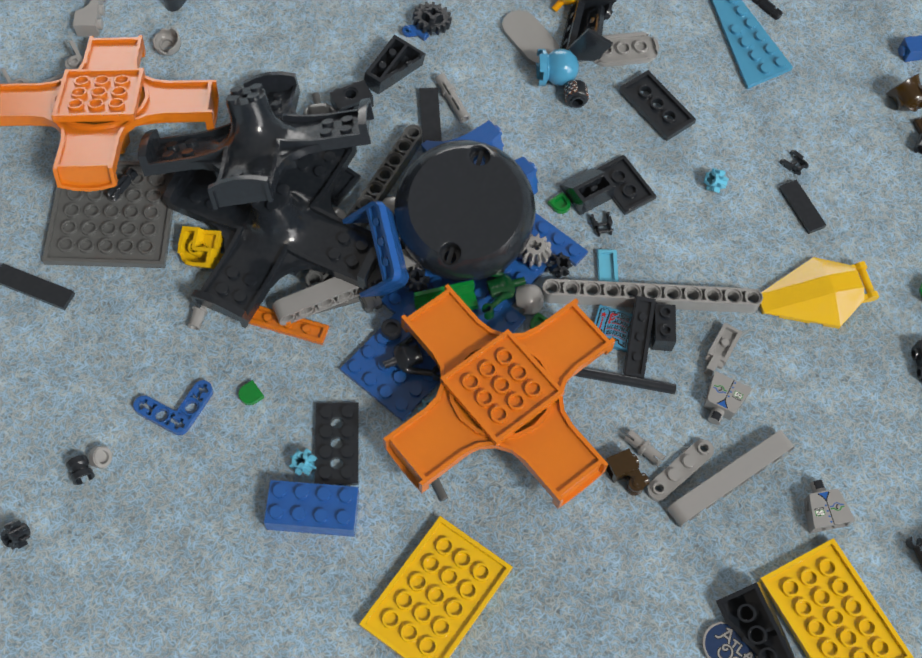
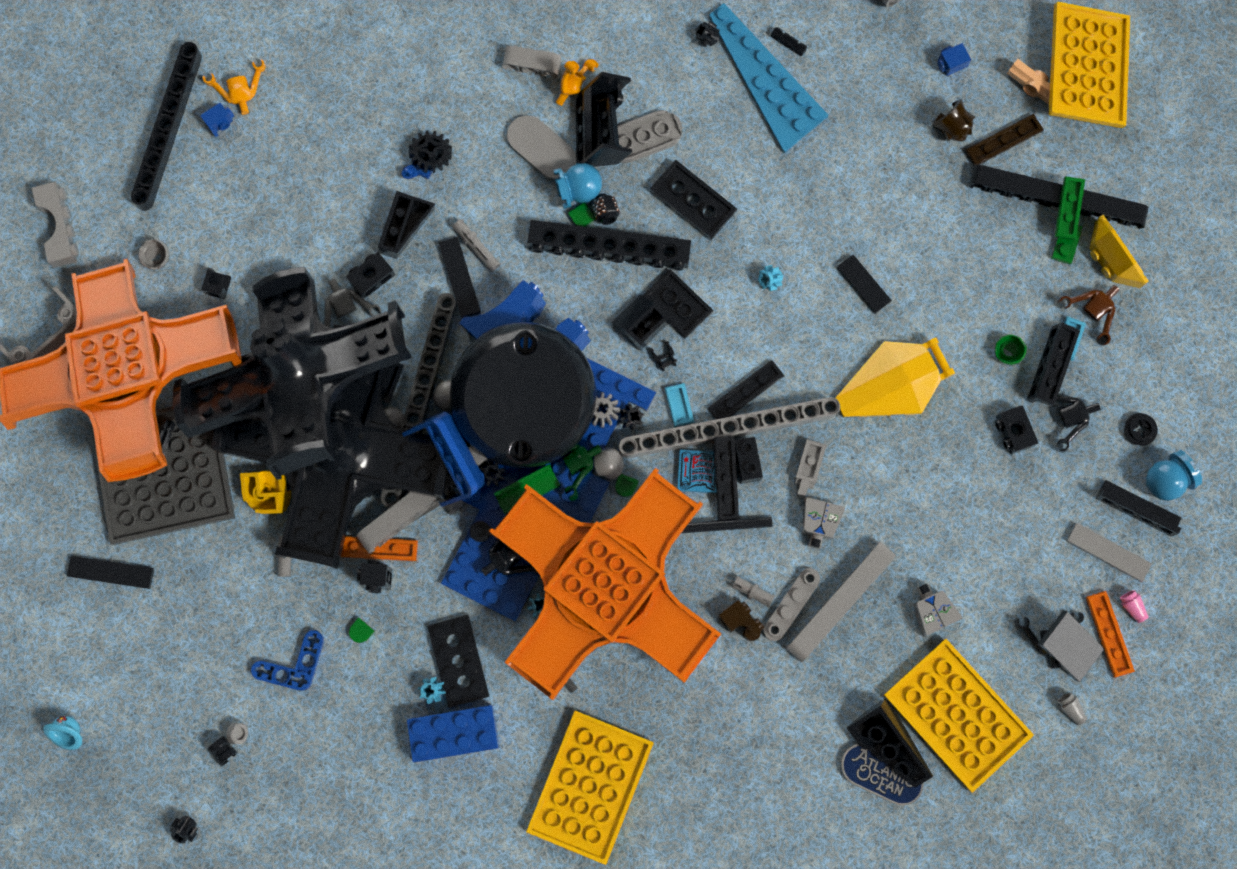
camera: 10 degrees left, 15 degrees up
(210, 73) = (216, 284): none -> black panel
(279, 343) = (375, 576): none -> black brick
(553, 97) = (581, 215): none -> green tile
(560, 203) = (616, 343): green tile -> none
(573, 122) = (540, 229): none -> black brick
(675, 269) = (746, 391): none -> black tile
(791, 166) = (852, 229): black piece -> none

